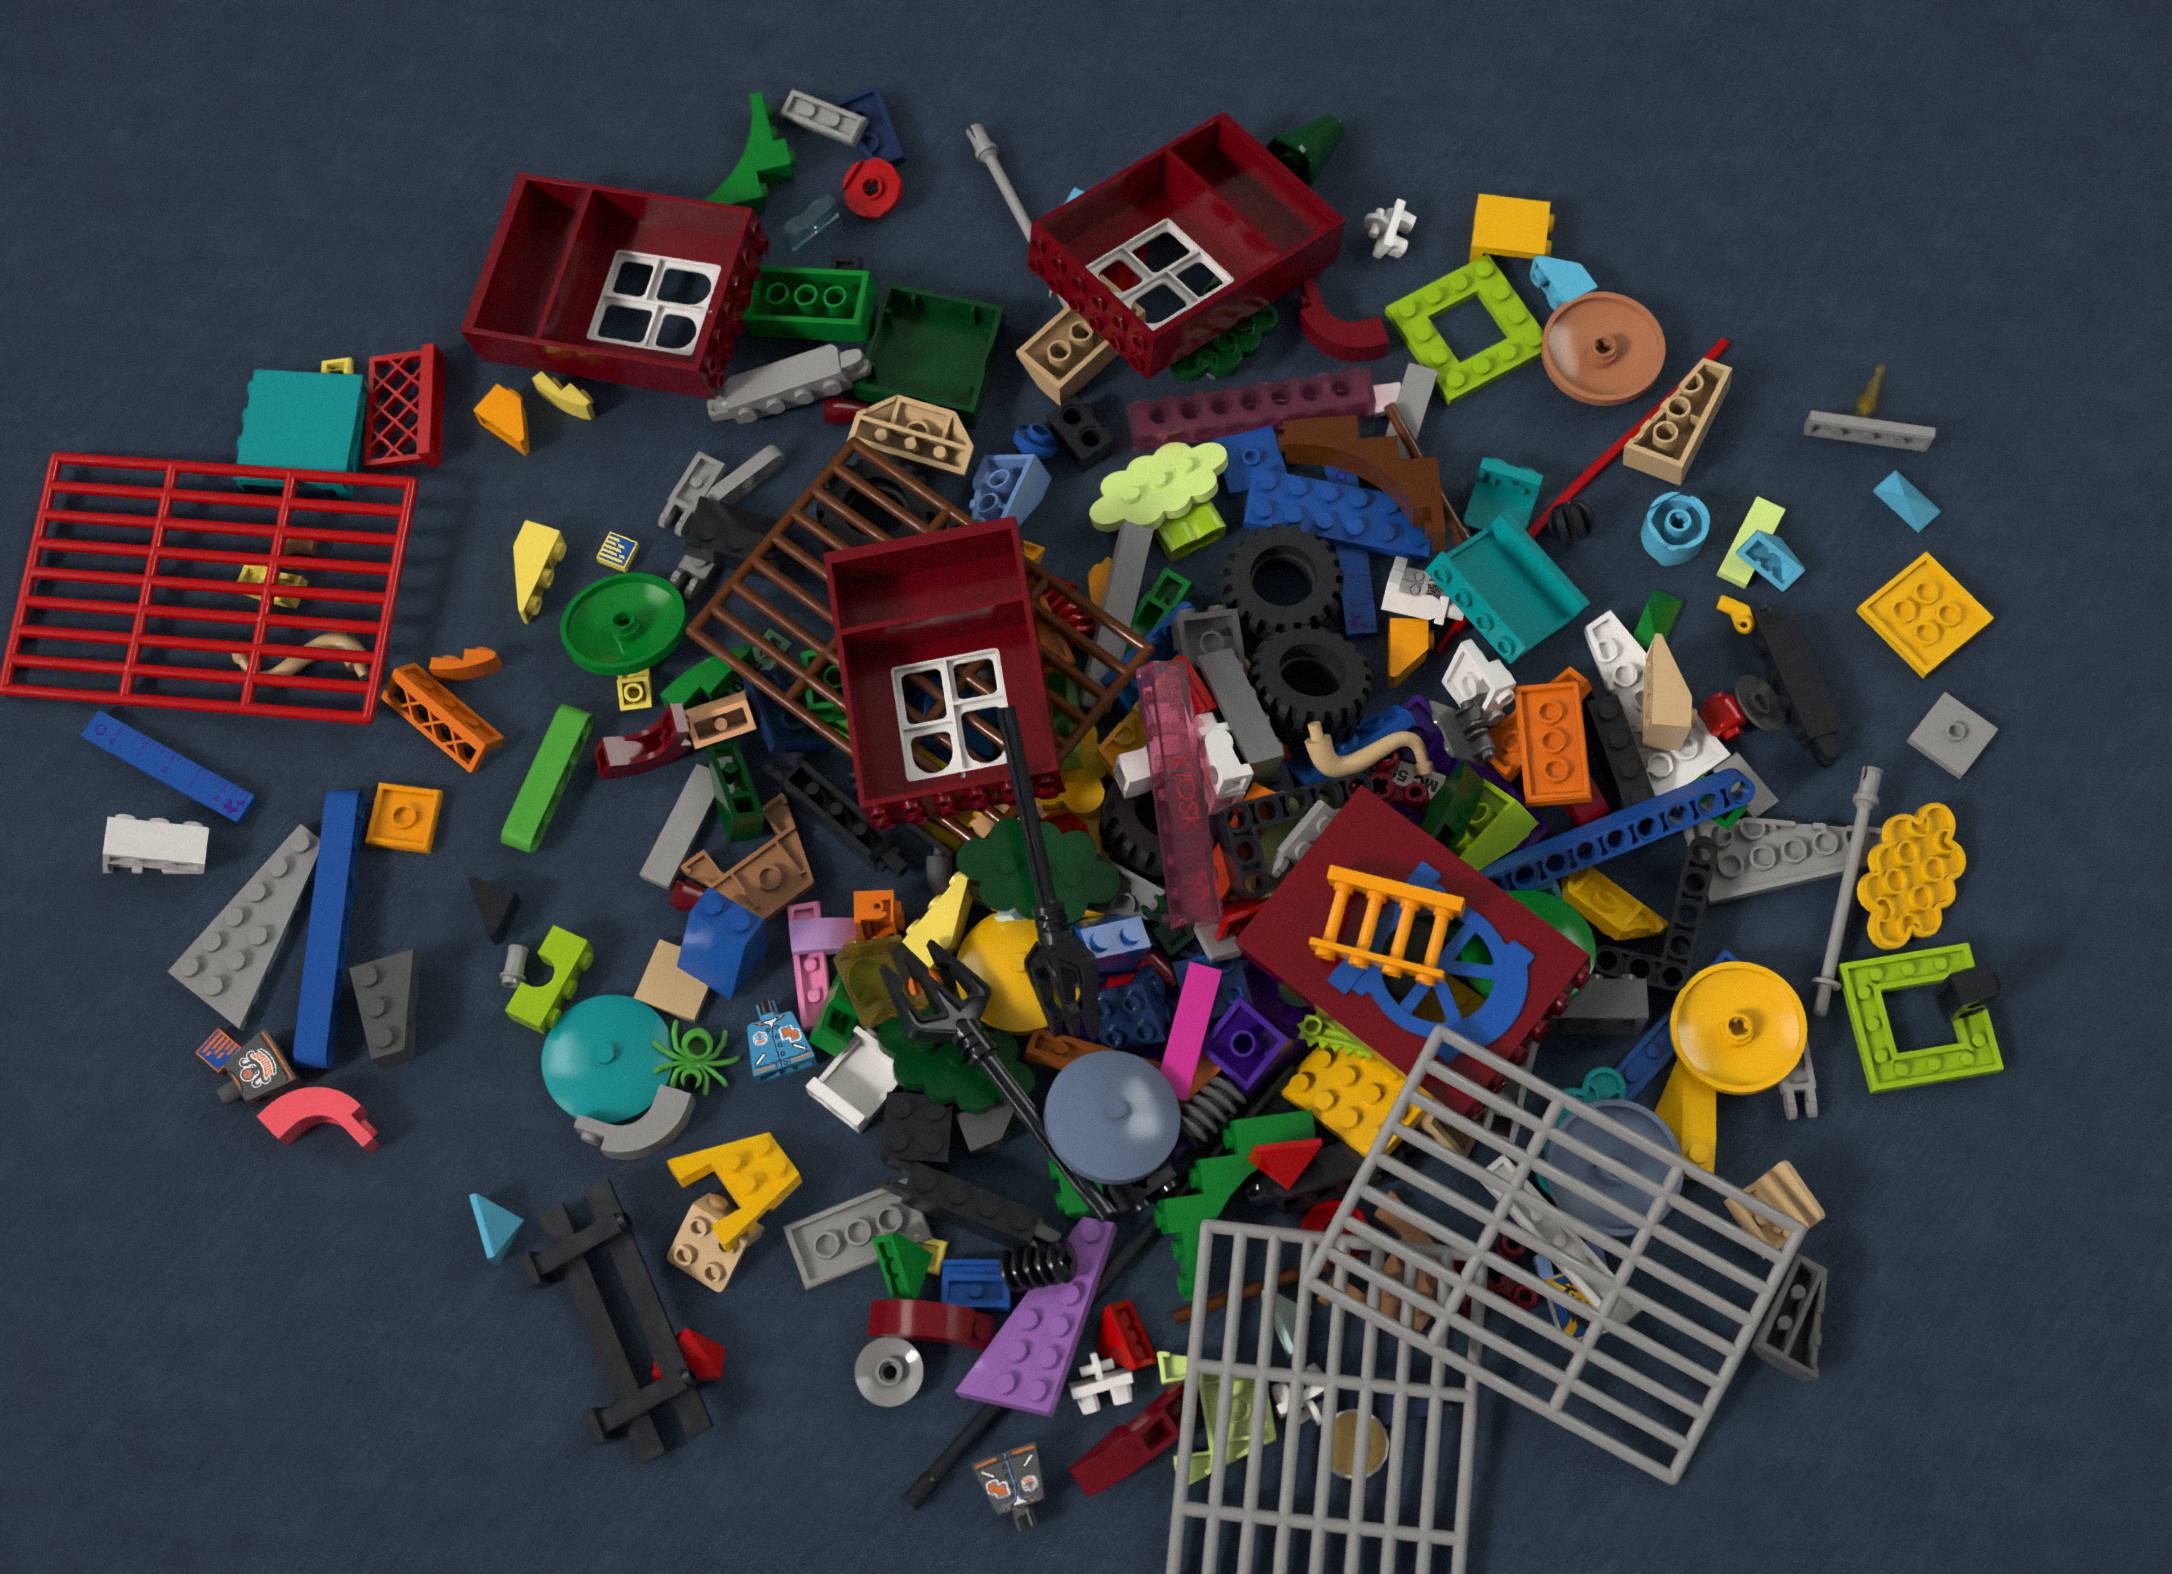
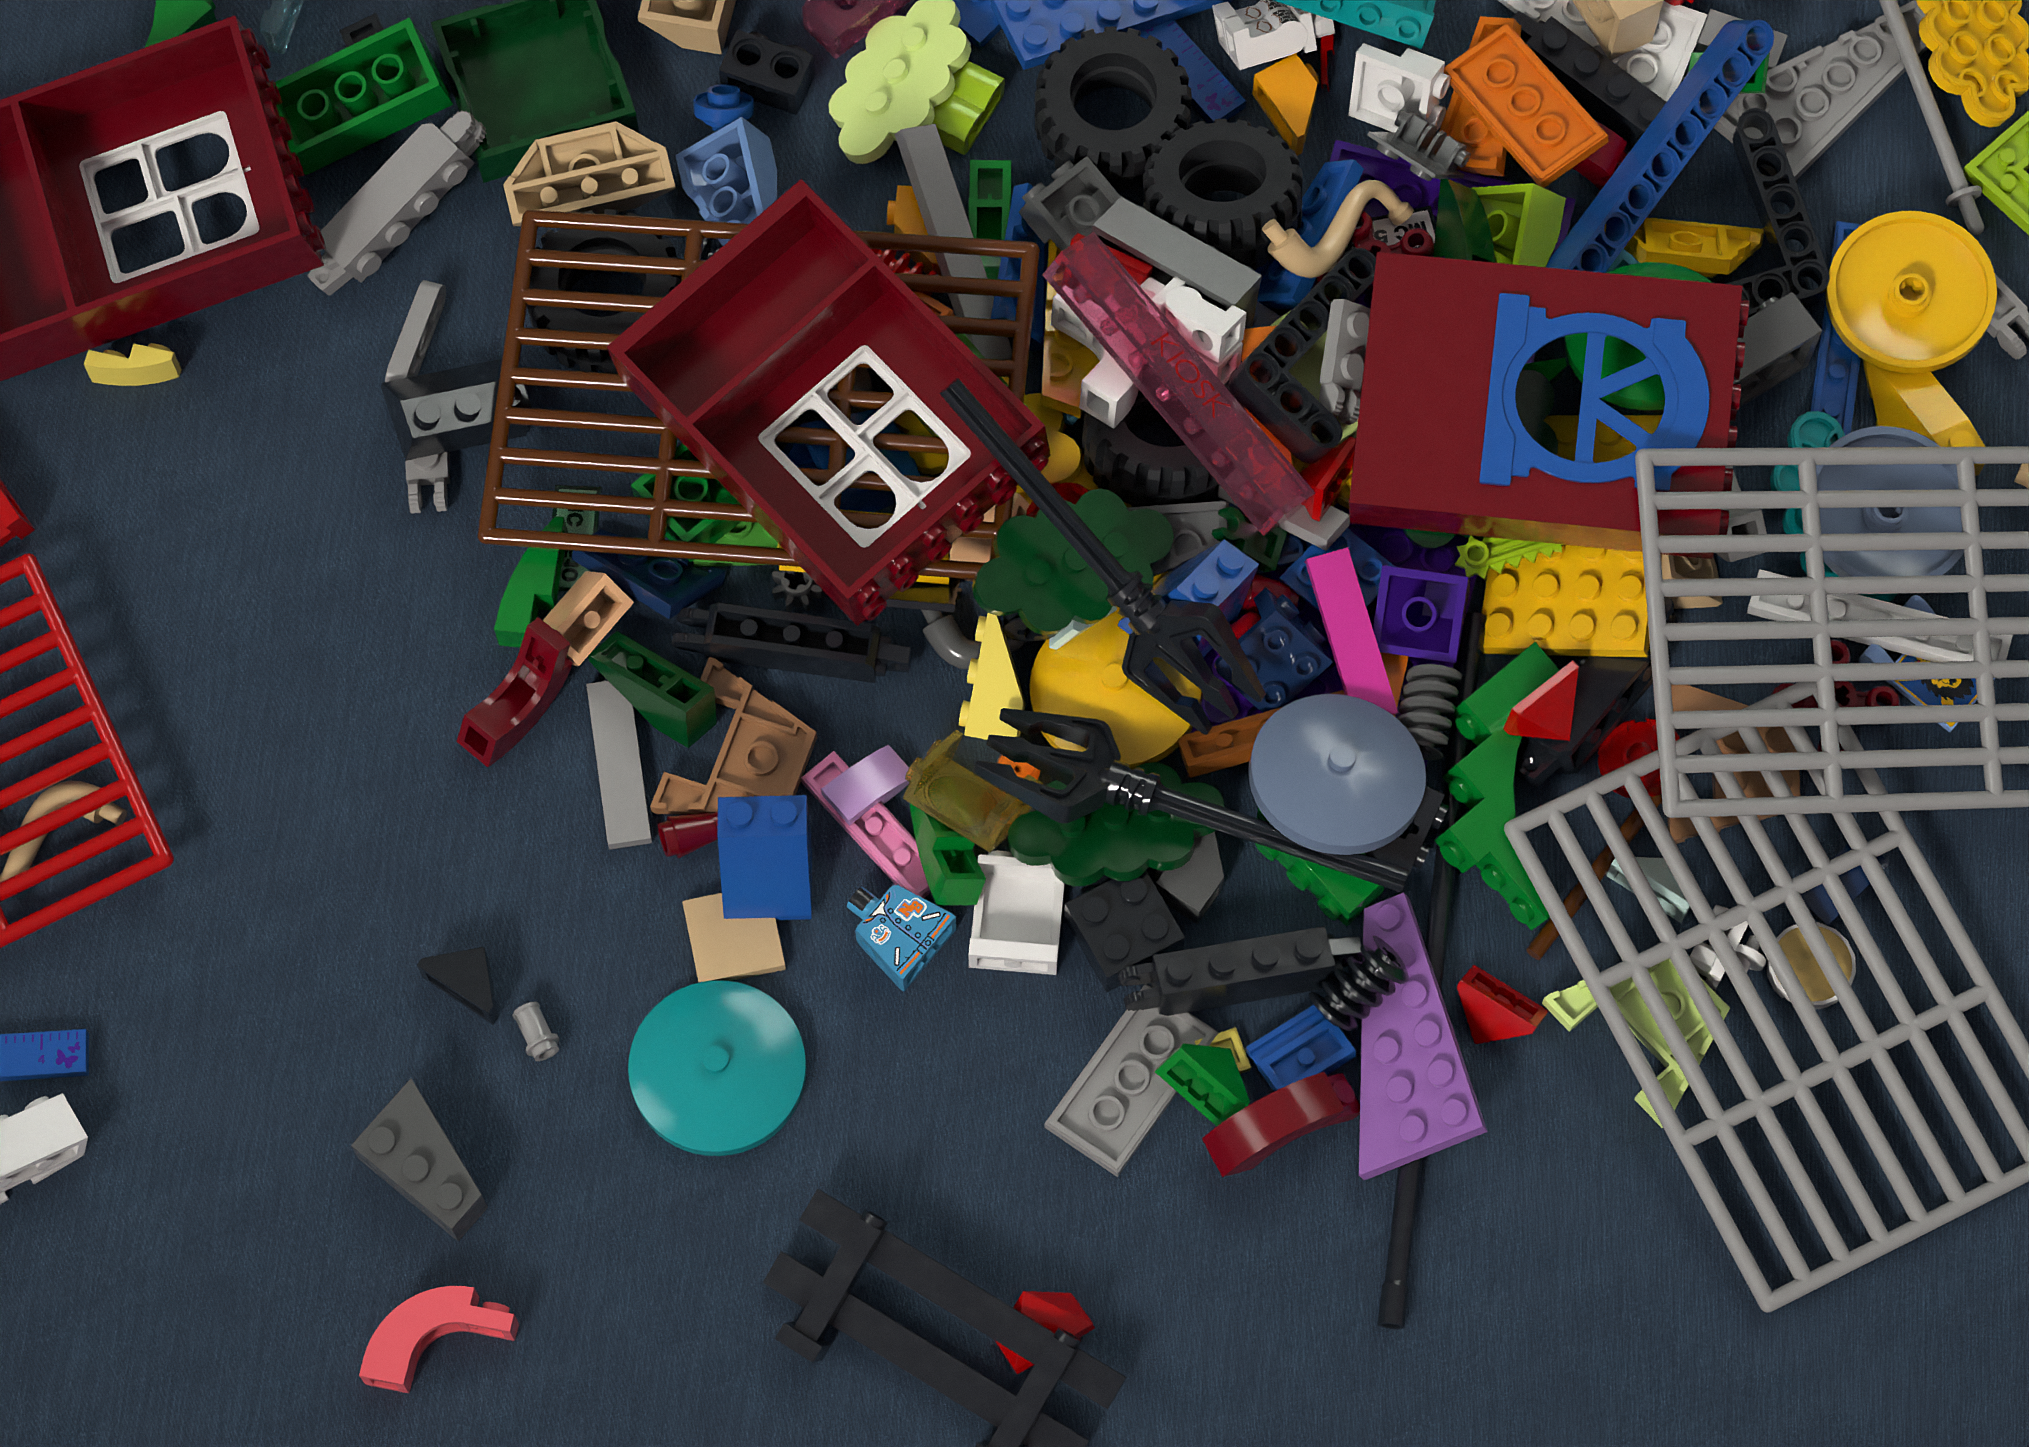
camera: 35 degrees left, 0 degrees up
(218, 1050) = (253, 1337): tile -> none
(244, 940) = (190, 1200): light grey wing -> none
(259, 1073) = (323, 1329): dark grey torso -> none
(329, 929) = (286, 1122): blue beam -> none
(404, 818) = (283, 948): light orange tile -> none
(445, 706) = (249, 794): orange fence -> none
(475, 664) = (248, 722): orange slope -> none
(496, 1227) = (720, 1323): medium azure slope -> none
(505, 417) = (78, 429): light orange slope -> none
(535, 557) = (229, 565): light yellow slope -> none
(541, 1006) = (595, 1058): lime arch -> none
(547, 779) = (424, 803): bright green beam -> none
(618, 552) = (321, 505): tile -> none
(623, 624) = (393, 577): green dish -> none
(635, 691) = (443, 635): light yellow slope -> none
(647, 1135) = (820, 1123): light grey arch -> none
(694, 1057) = (816, 1004): bright green animal -> none
(696, 481) = (361, 385): light grey hinge -> none
(699, 1250) = (980, 1187): tan bracket -> none
(752, 1172) = (972, 1084): yellow wing -> none
(841, 410) = (475, 198): dark red cone -> none
(871, 1367) = (1276, 1178): light grey dish -> none
(877, 914) = (917, 721): orange hinge -> none
(1013, 1484) = (1488, 1232): dark grey torso -> none
(1086, 1389) = (1520, 1057): white hips -> none
(1131, 1445) = (1588, 1110): dark red slope -> none
(1378, 892) = (1520, 339): light orange fence -> none

